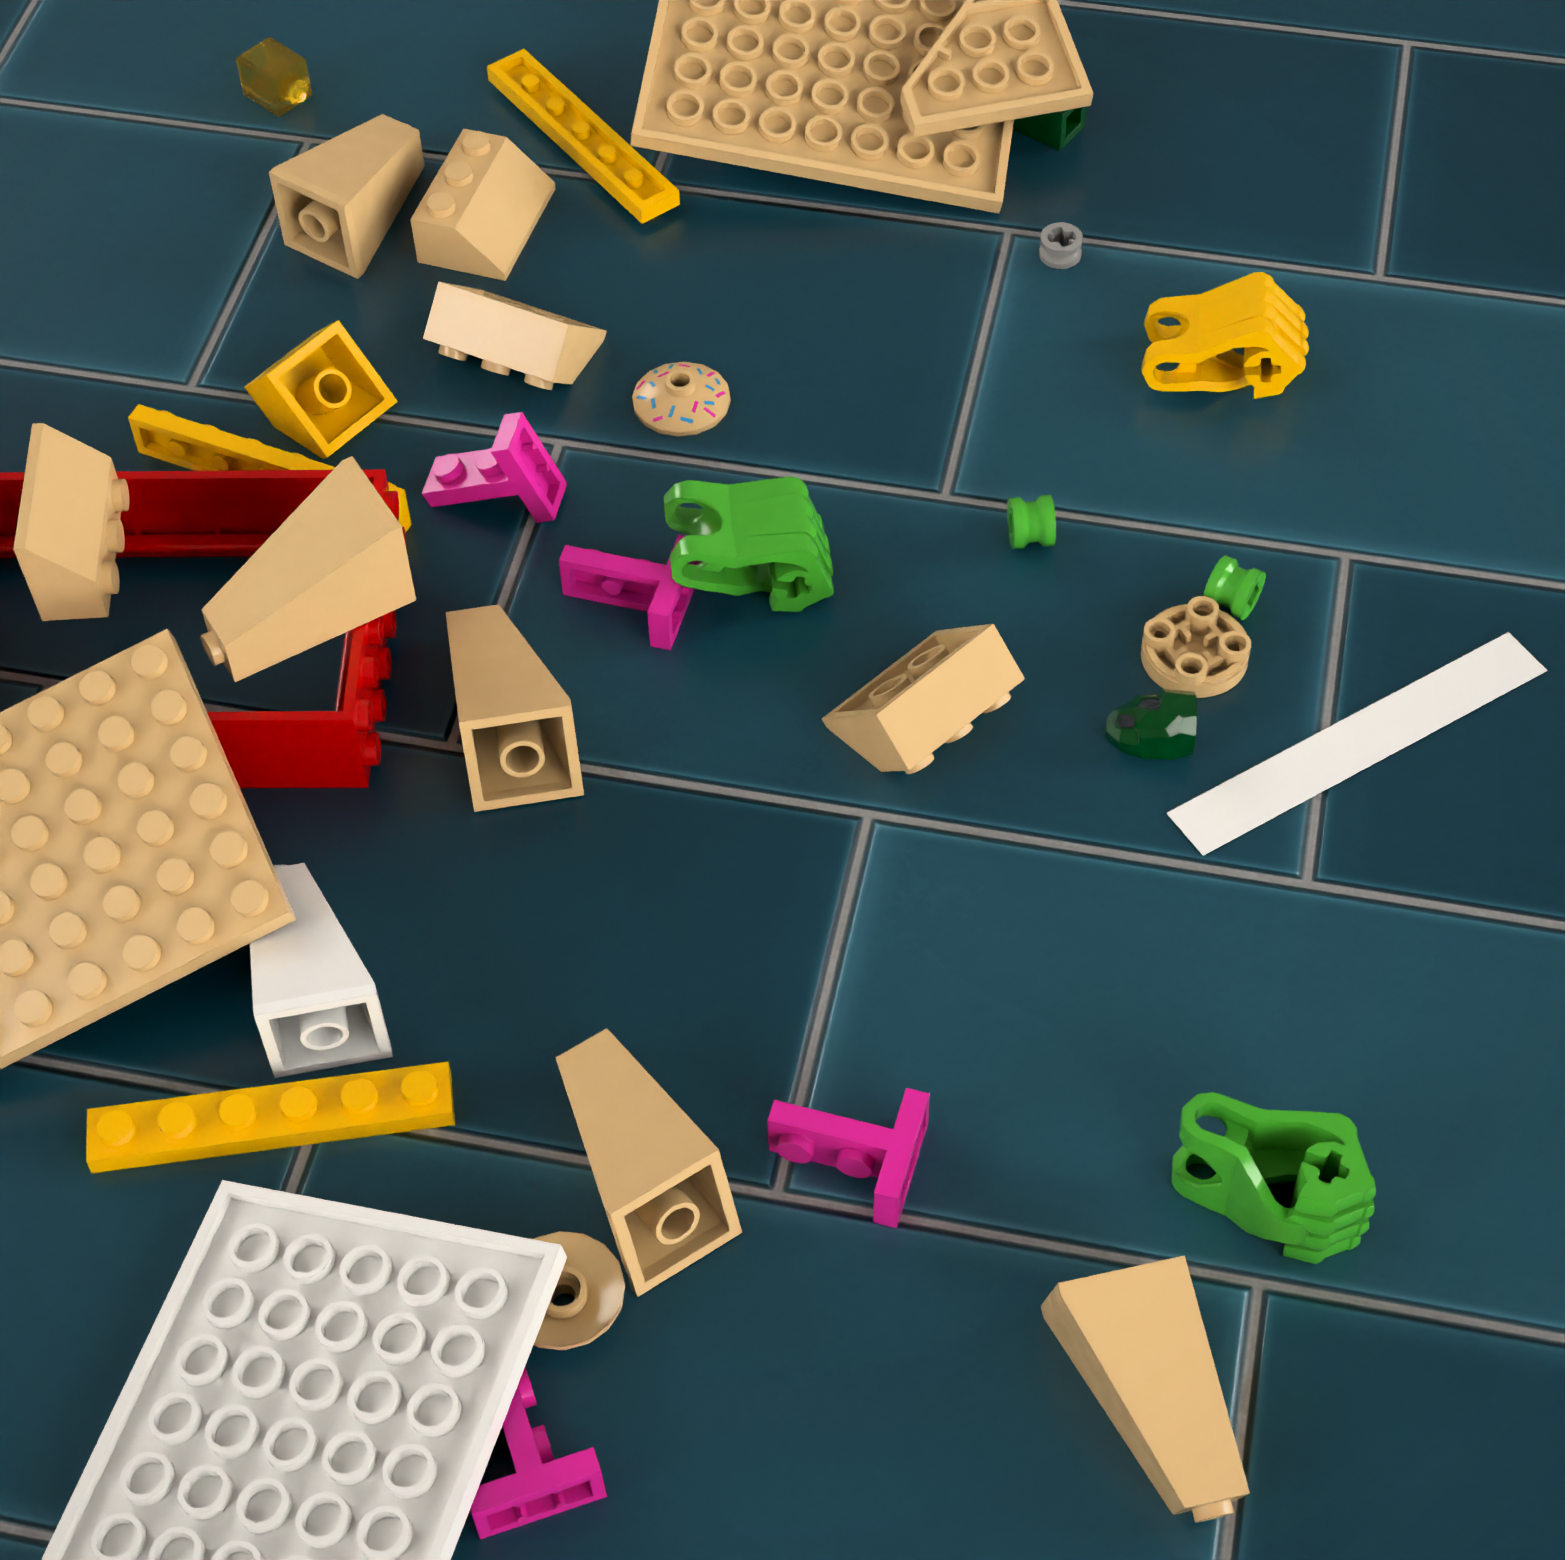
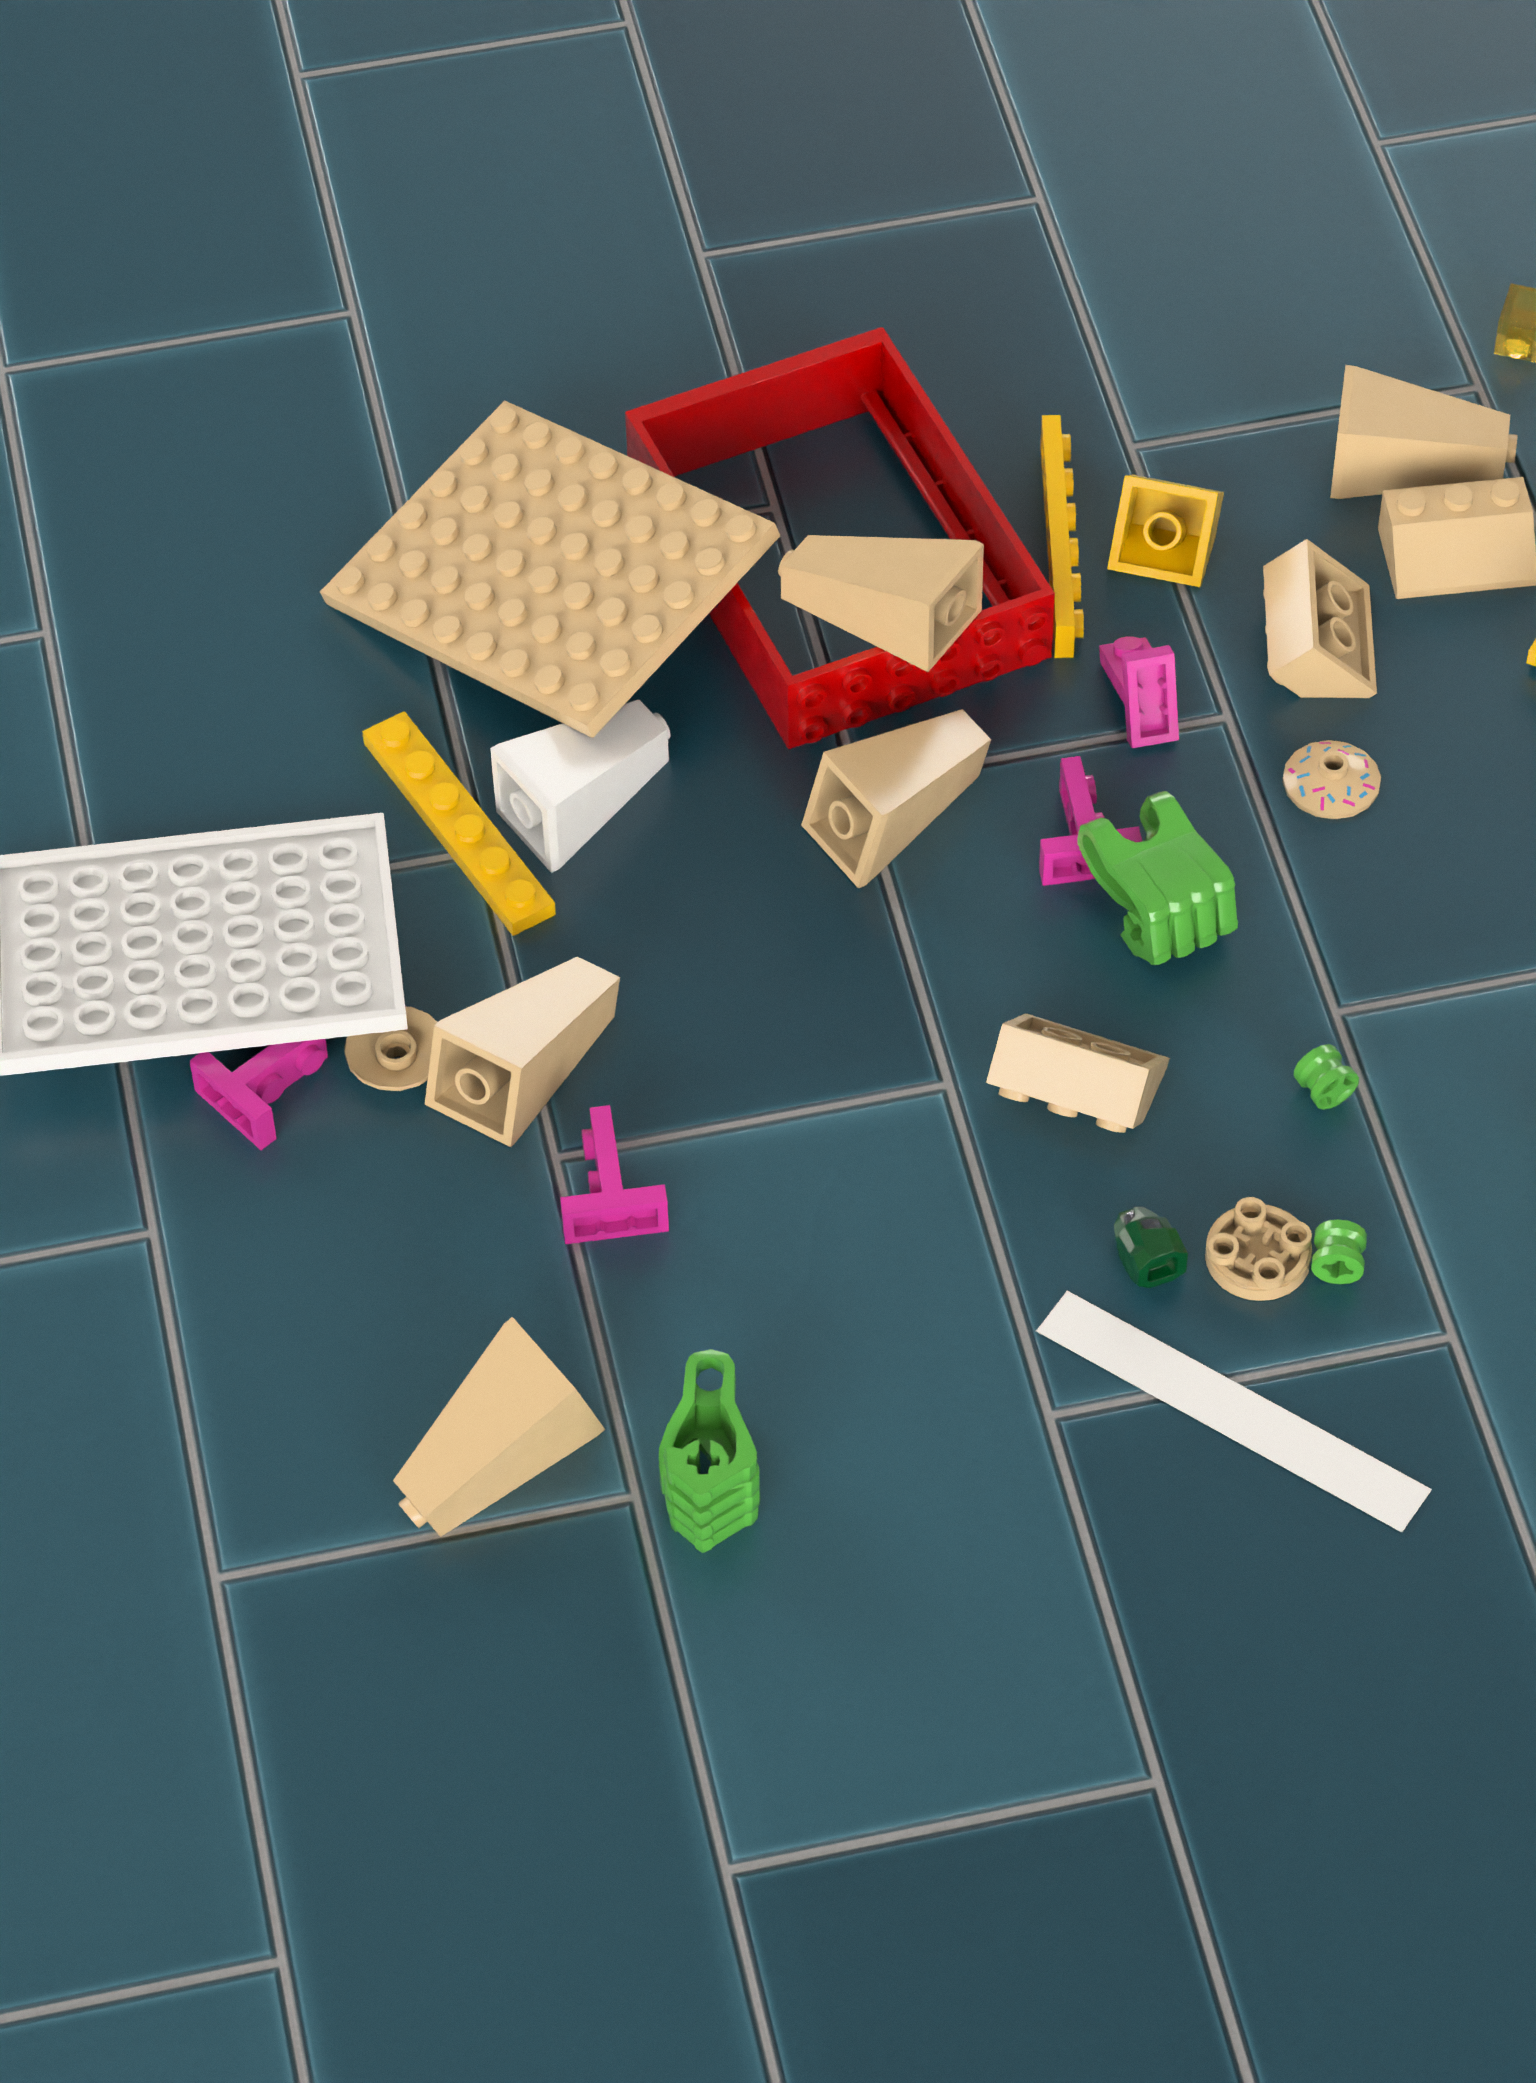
camera: 65 degrees right, 0 degrees up
(70, 526) = (847, 417): tan slope -> none

